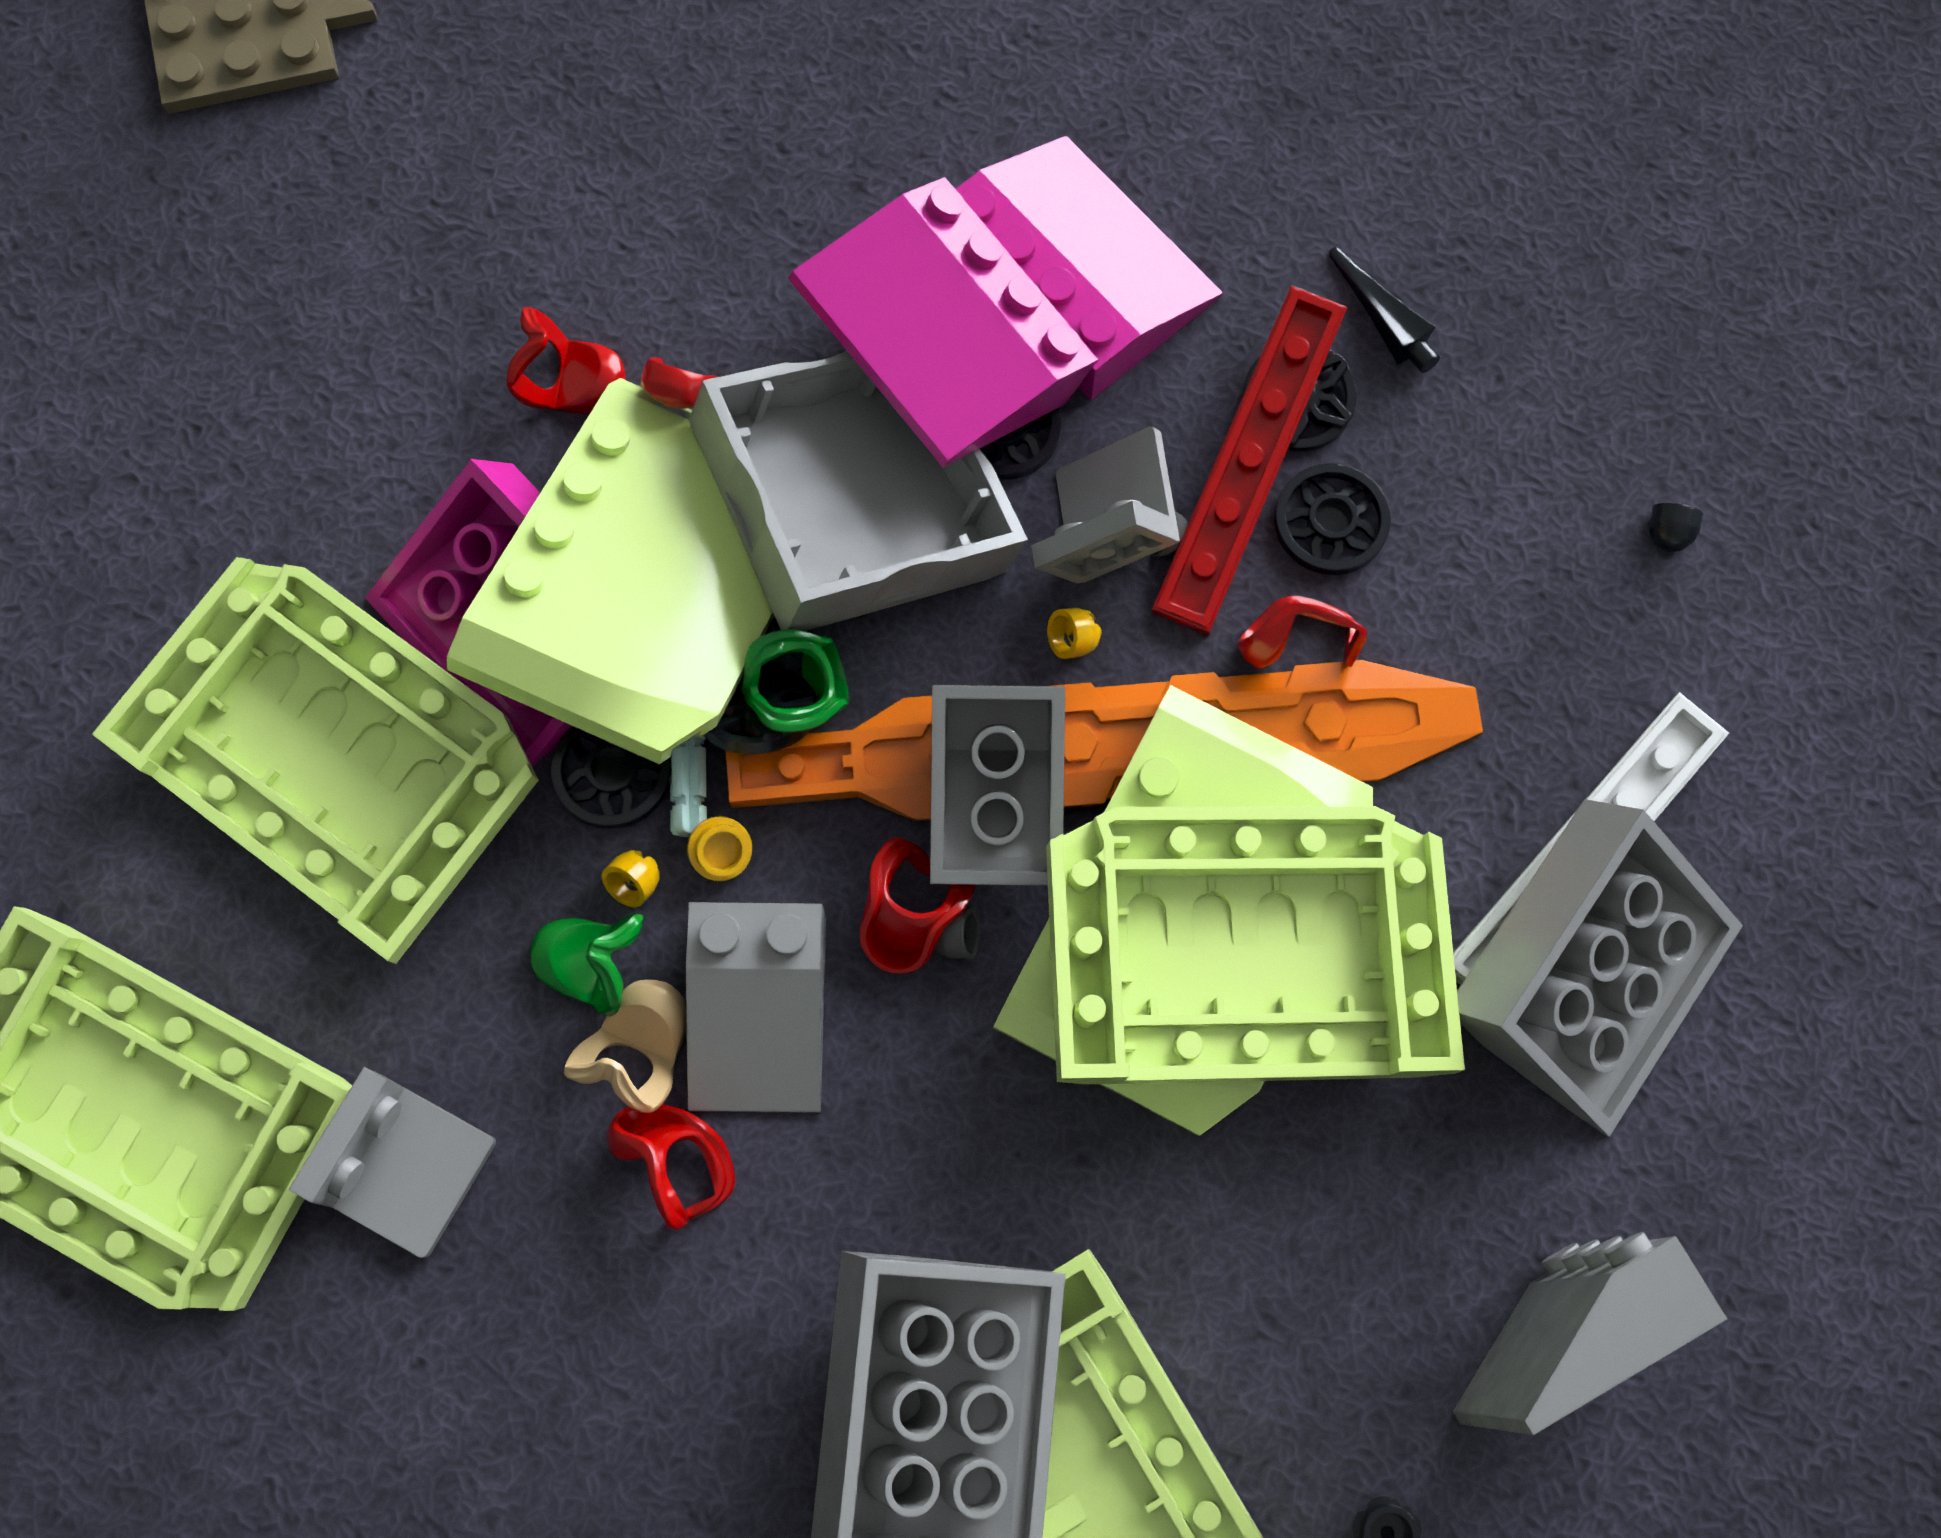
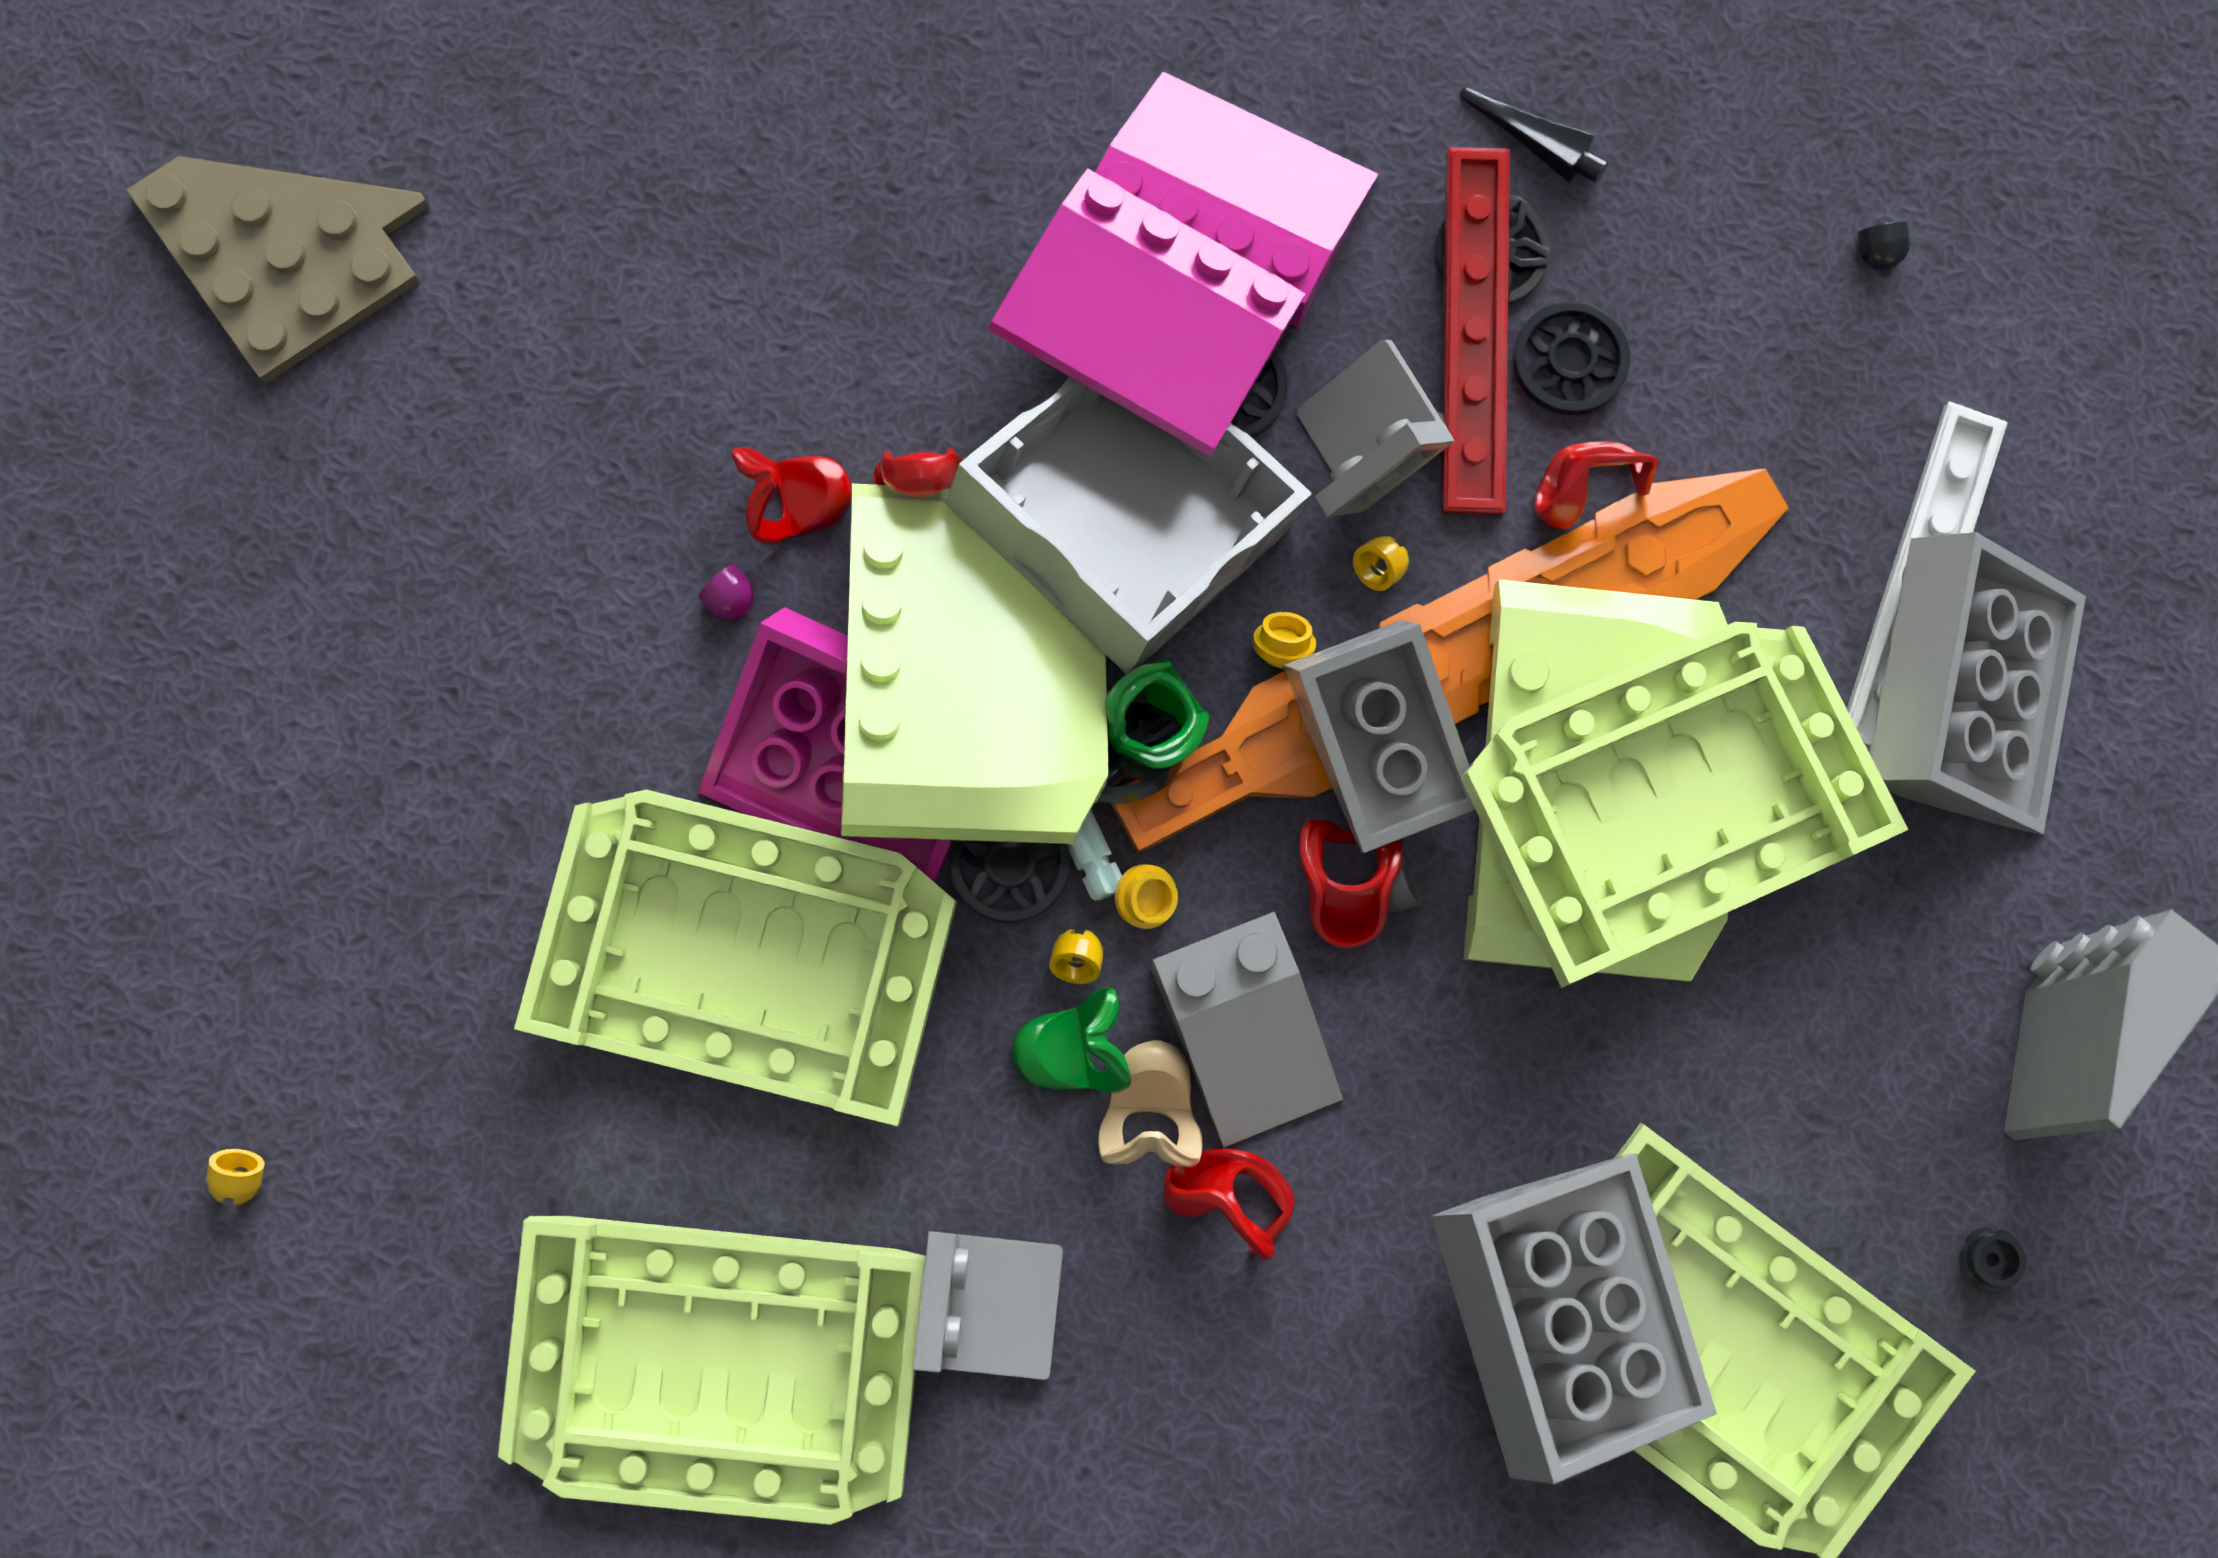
camera: 25 degrees left, 5 degrees up
(471, 433) = (728, 594): none -> magenta hinge
(951, 664) = (1284, 639): none -> yellow plate

